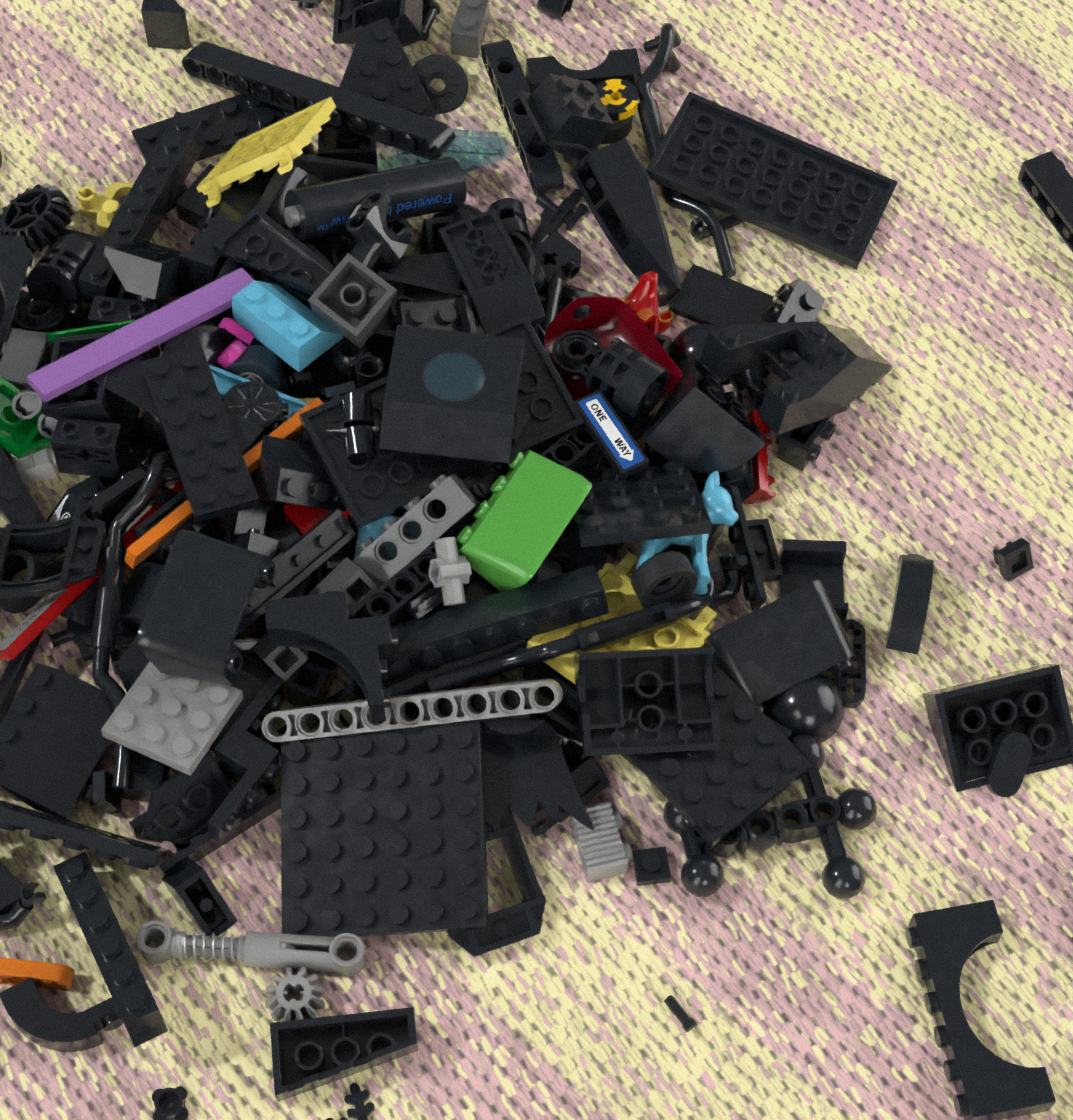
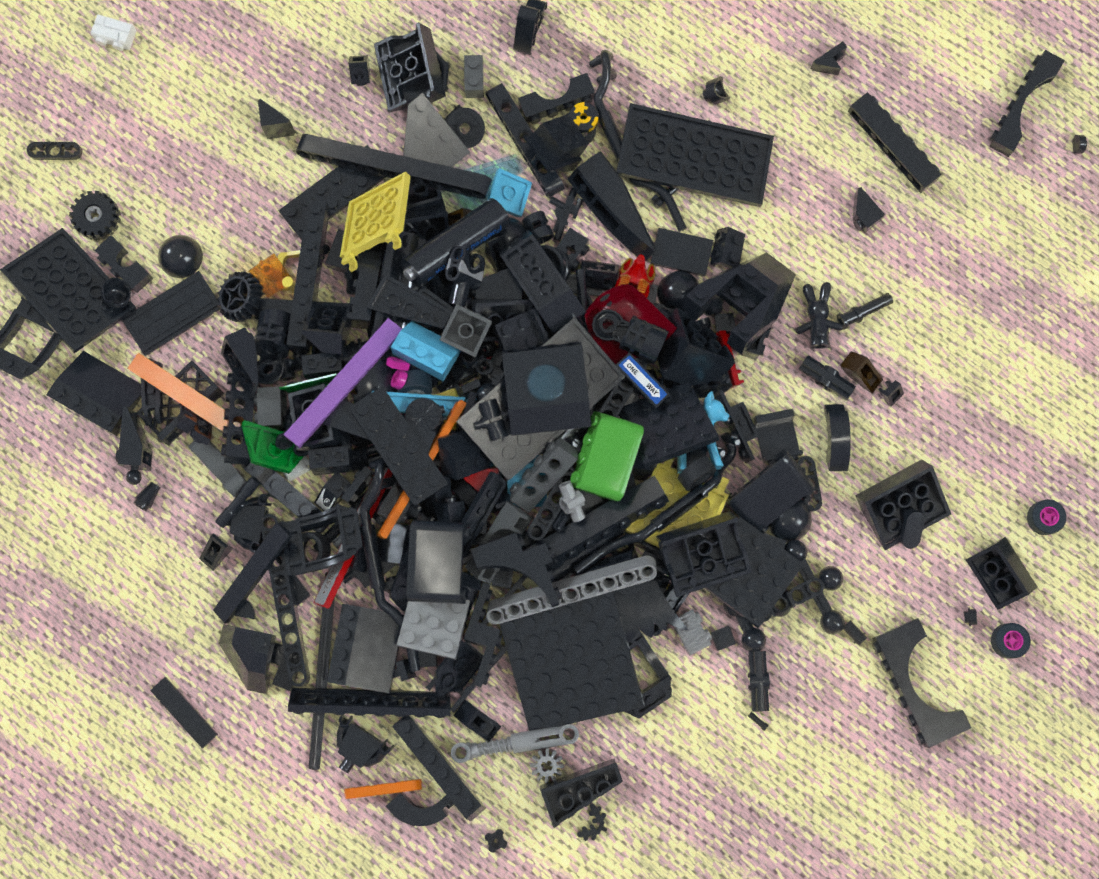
camera: 10 degrees left, 20 degrees up
(86, 198) = (270, 273): none -> clear orange piece
(484, 173) = (510, 192): none -> medium azure tile
(695, 945) = (759, 681): none -> black piece
(821, 109) = (715, 91): none -> black piece
(883, 912) = (854, 632): none -> black pin
(912, 516) = (827, 377): none -> black piece
(915, 423) = (818, 314): none -> black animal
(970, 518) = (861, 371): none -> dark brown slope
(978, 438) = (857, 314): none -> black pin
(1002, 106) = (828, 62): none -> black slope
(1020, 306) = (865, 211): none -> black slope

